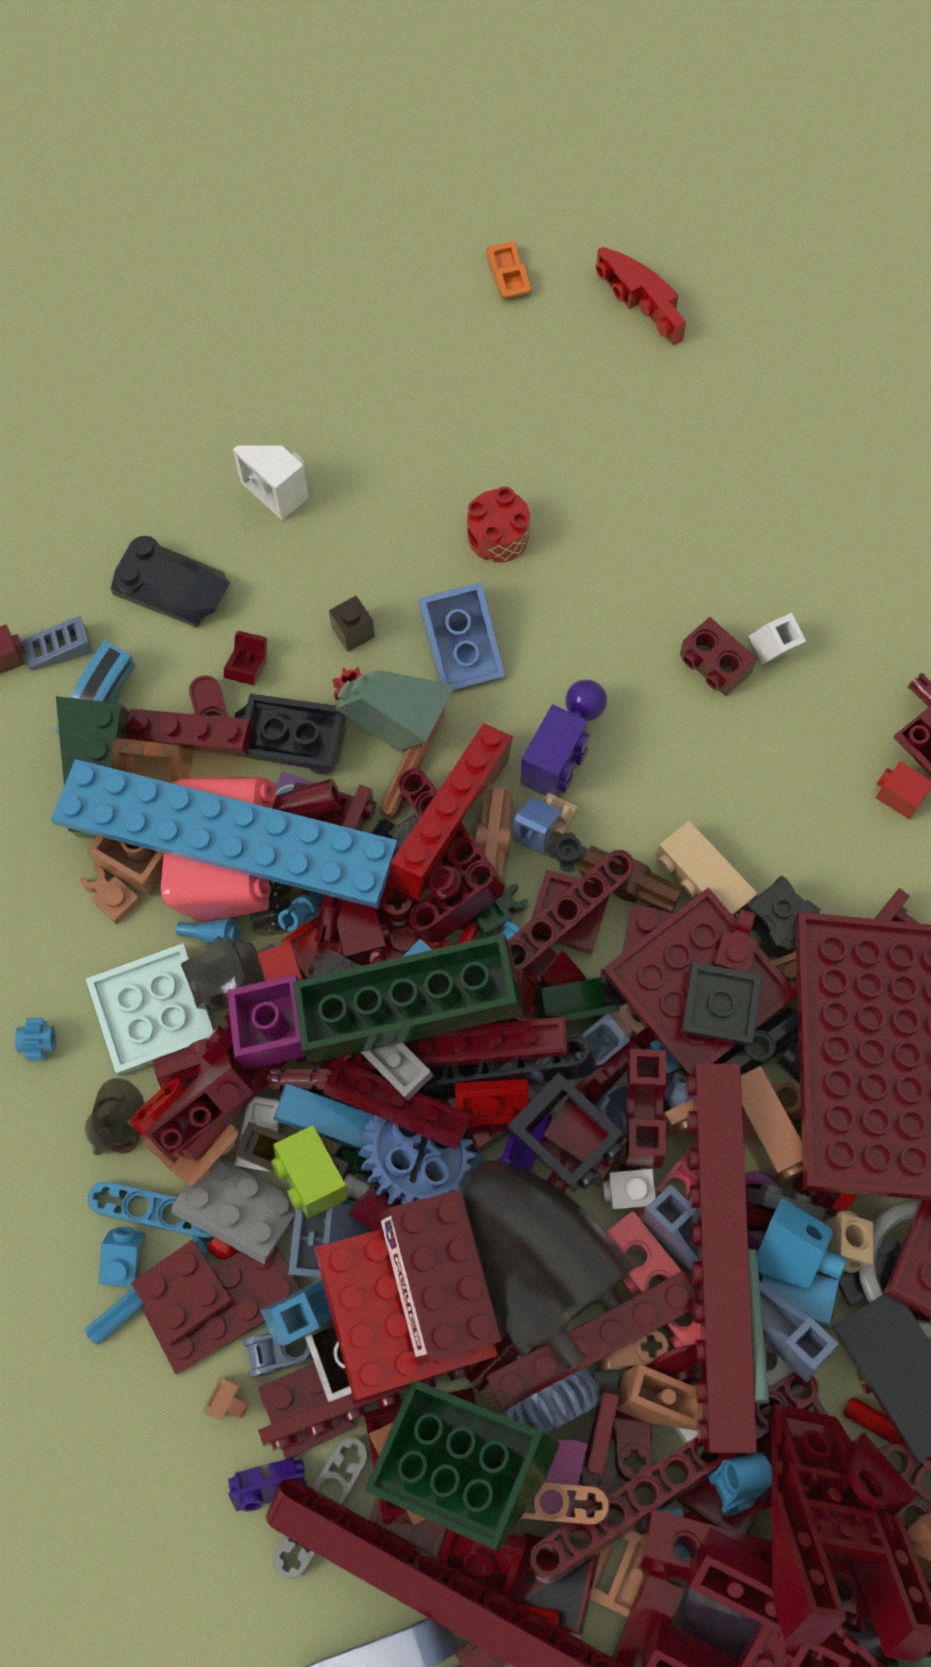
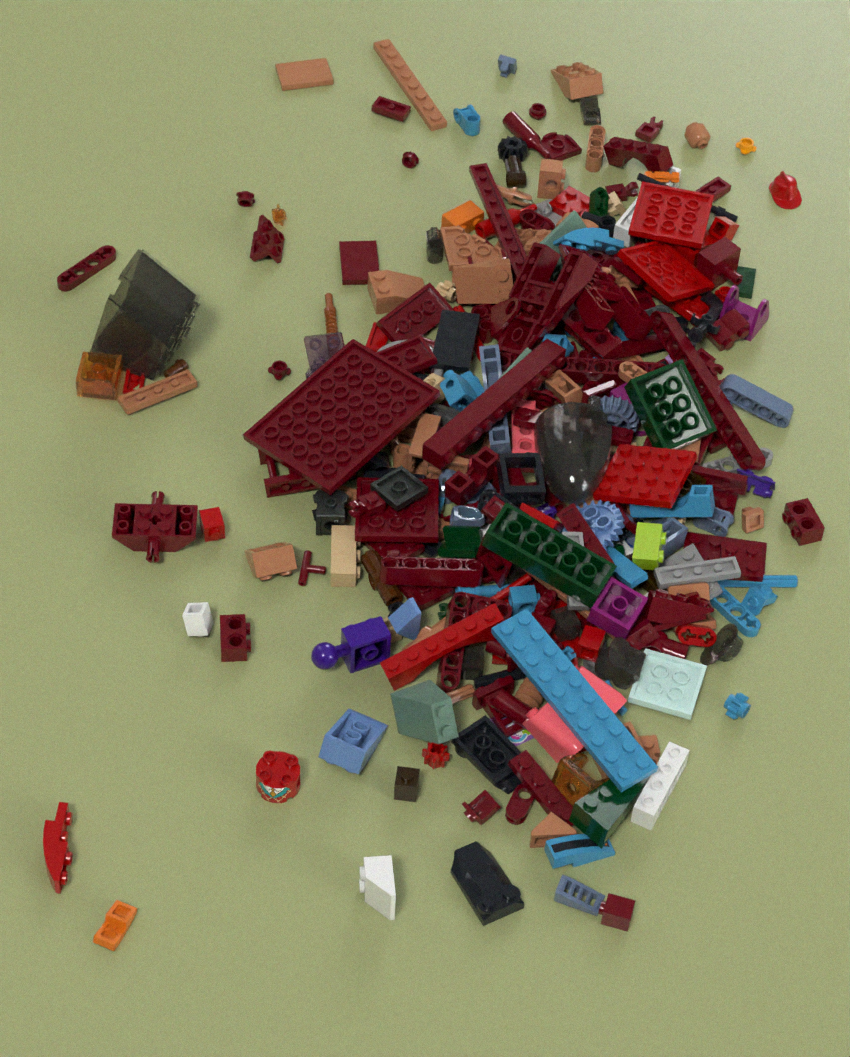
camera: 145 degrees left, 20 degrees down
(55, 850) = (660, 786): none -> white brick
(140, 1468) = (803, 522): none -> dark red brick
(142, 688) = (549, 828): none -> nougat slope
(214, 1190) = (697, 572): none -> light grey plate
(439, 1276) = (625, 463): dark red brick -> none
(734, 829) = (307, 568): none -> dark red piece
(787, 797) = (271, 560): none -> nougat slope

